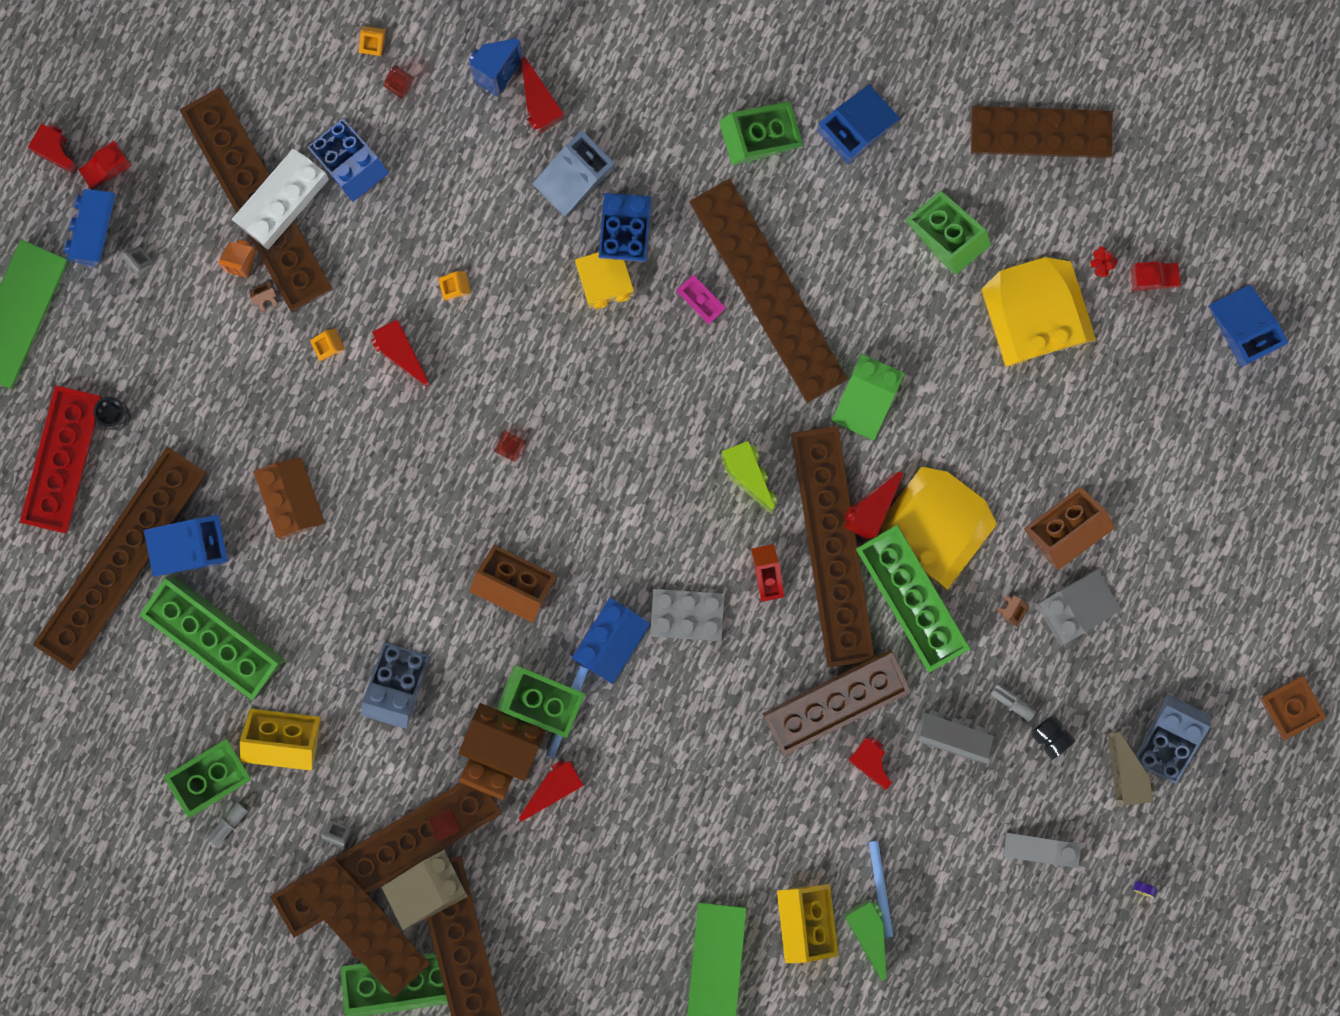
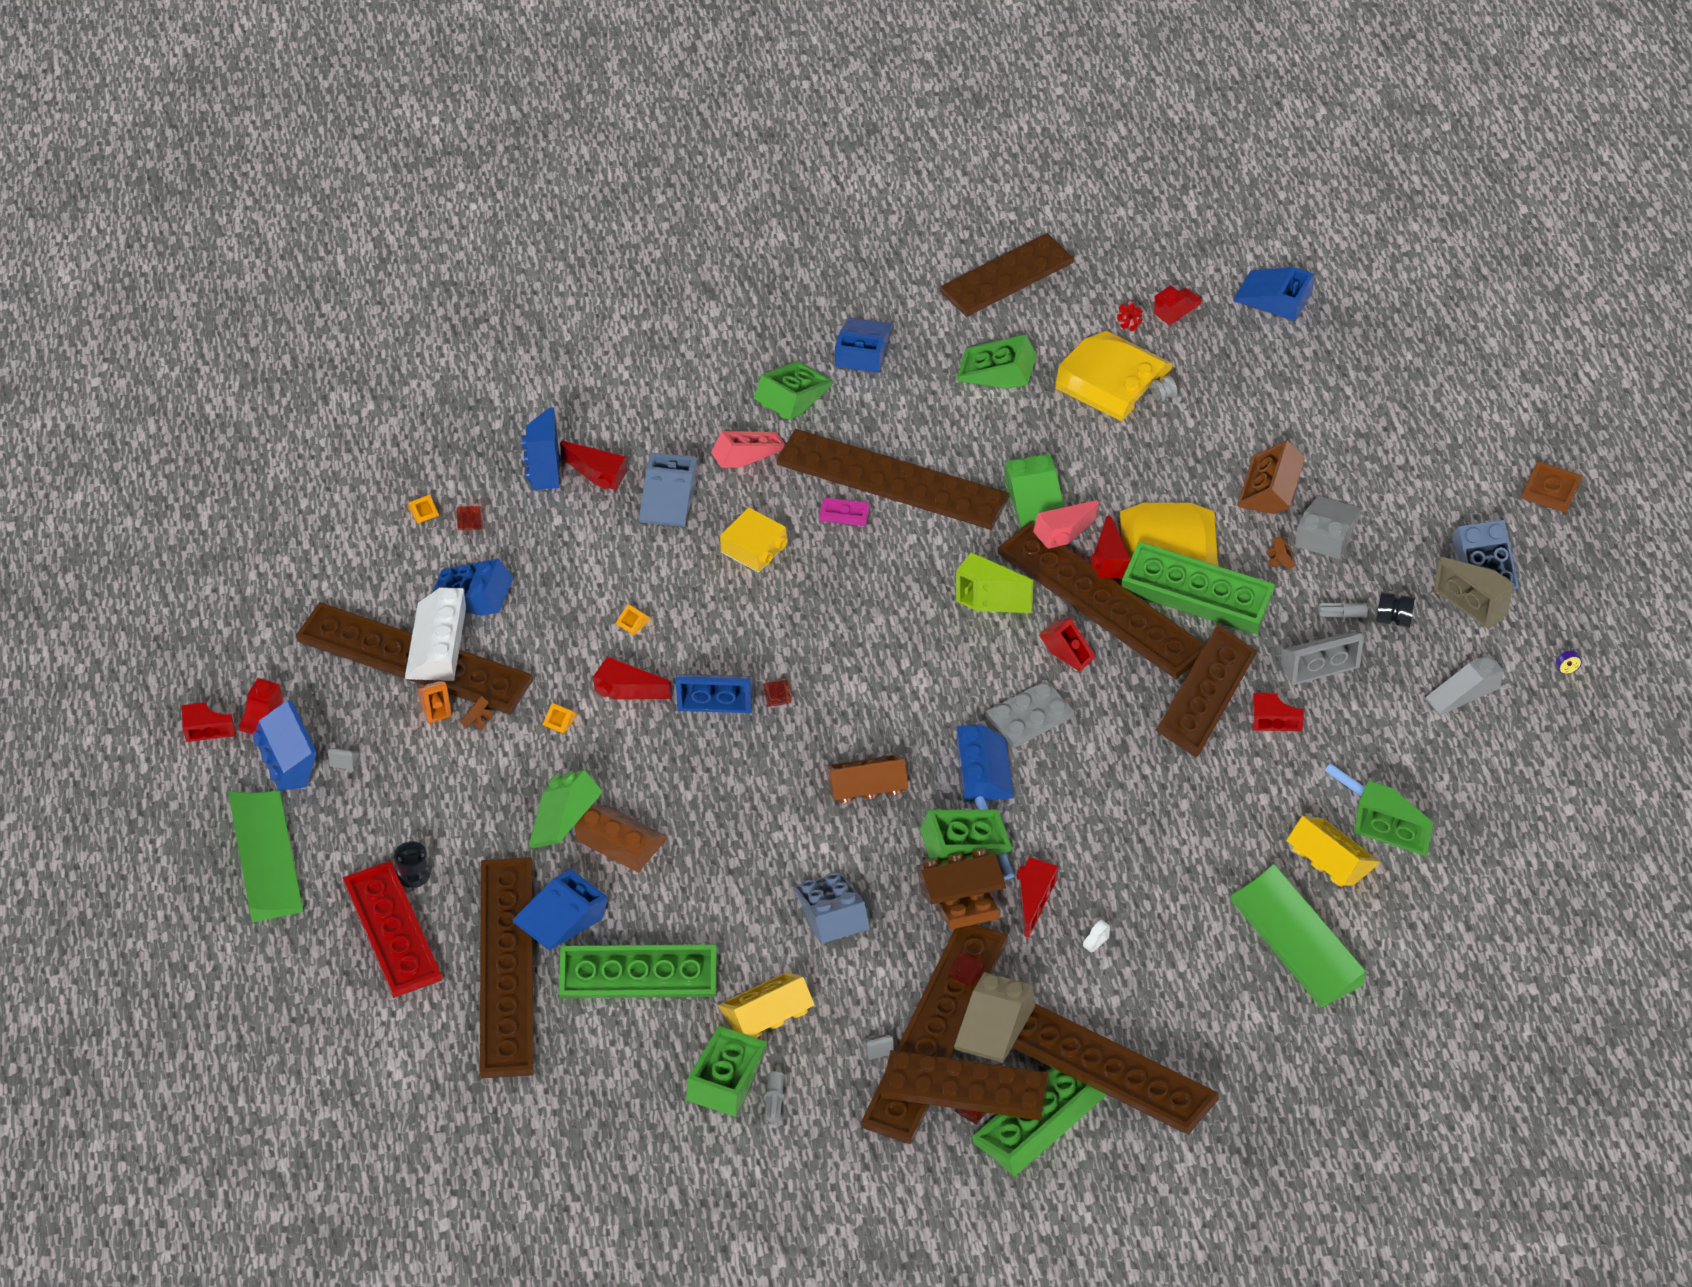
camera: 35 degrees left, 35 degrees down
(255, 448) = (563, 806): none -> bright green slope
(458, 412) = (714, 693): none -> blue slope
(567, 865) = (1097, 936): none -> white tile
(625, 227) = (739, 491): blue slope -> none
(674, 171) = (742, 448): none -> coral slope
(852, 454) = (1064, 524): none -> coral slope
(1064, 364) = (1164, 389): none -> light grey wheel

